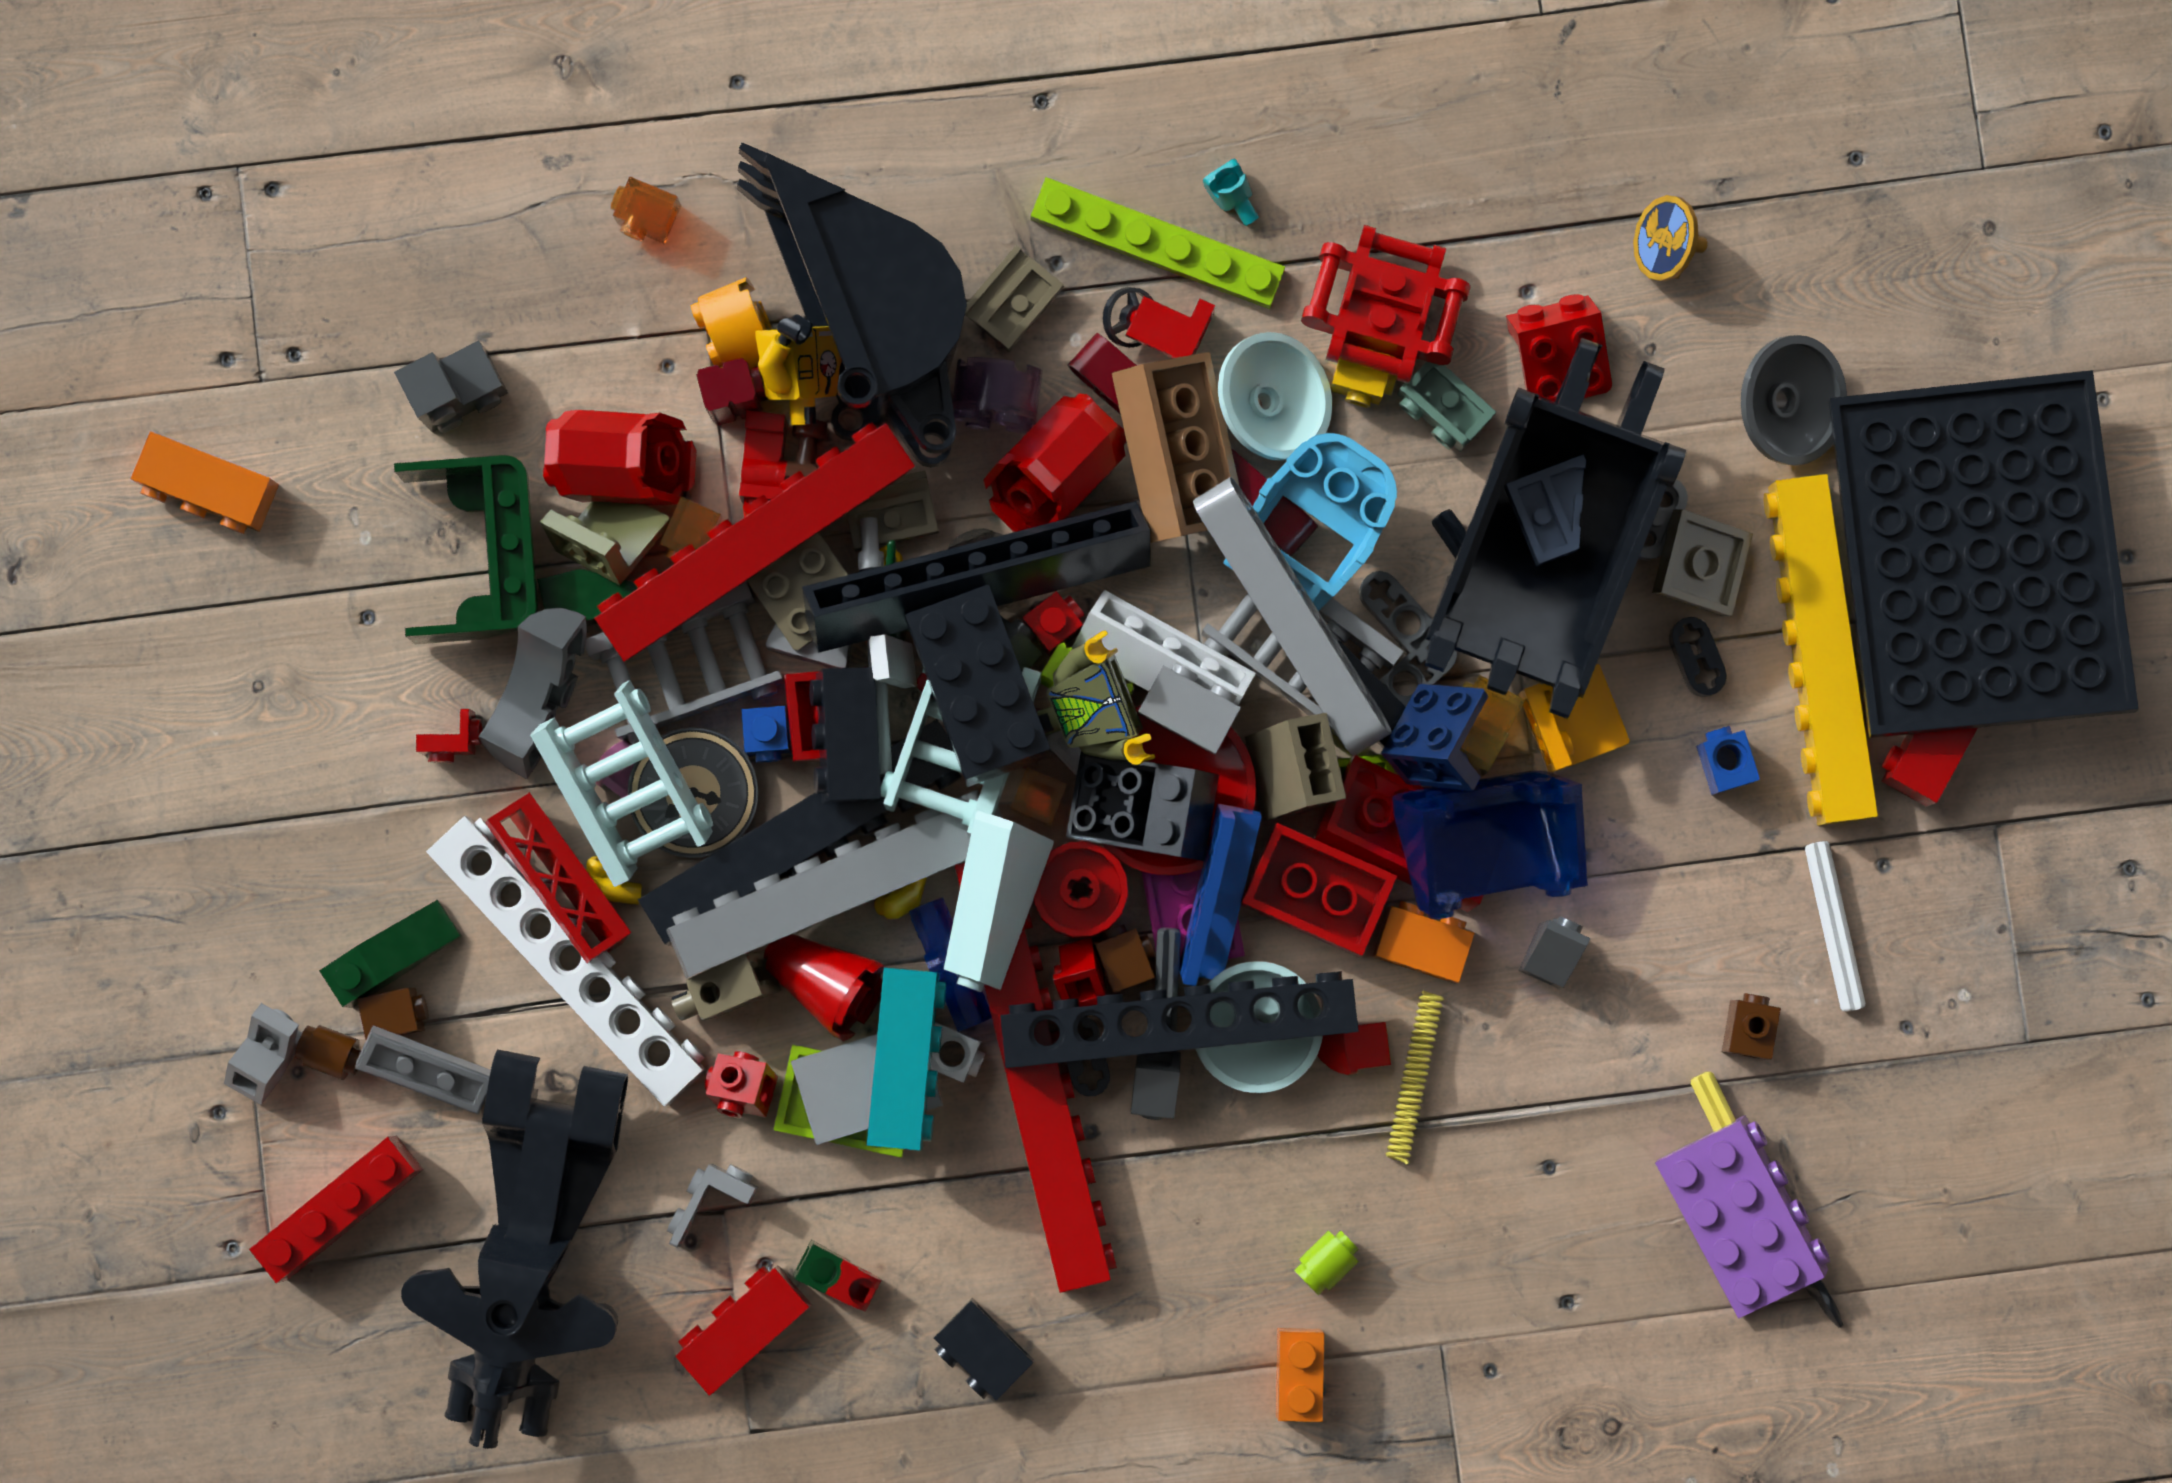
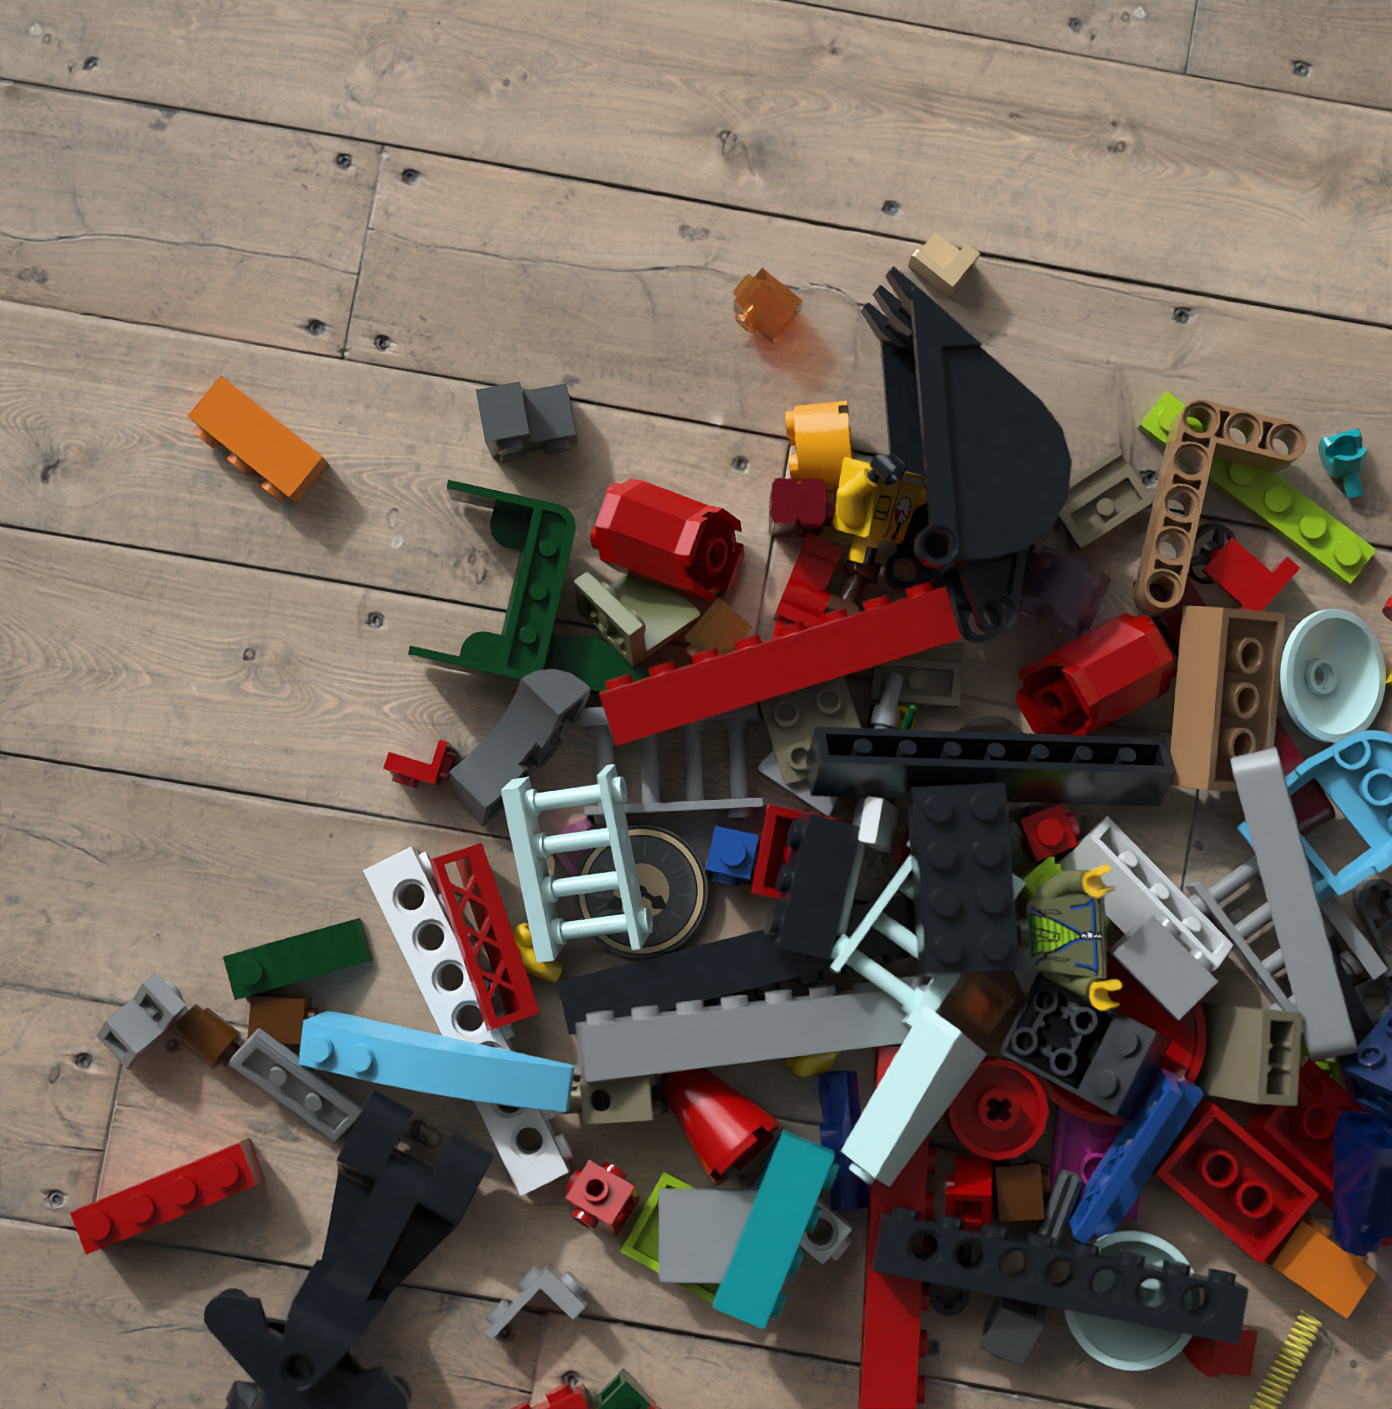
camera: 20 degrees right, 0 degrees up
(545, 1007) = (433, 1063): none -> medium azure slope
(801, 120) = (943, 263): none -> tan panel
(1088, 262) = (1191, 489): none -> medium nougat beam

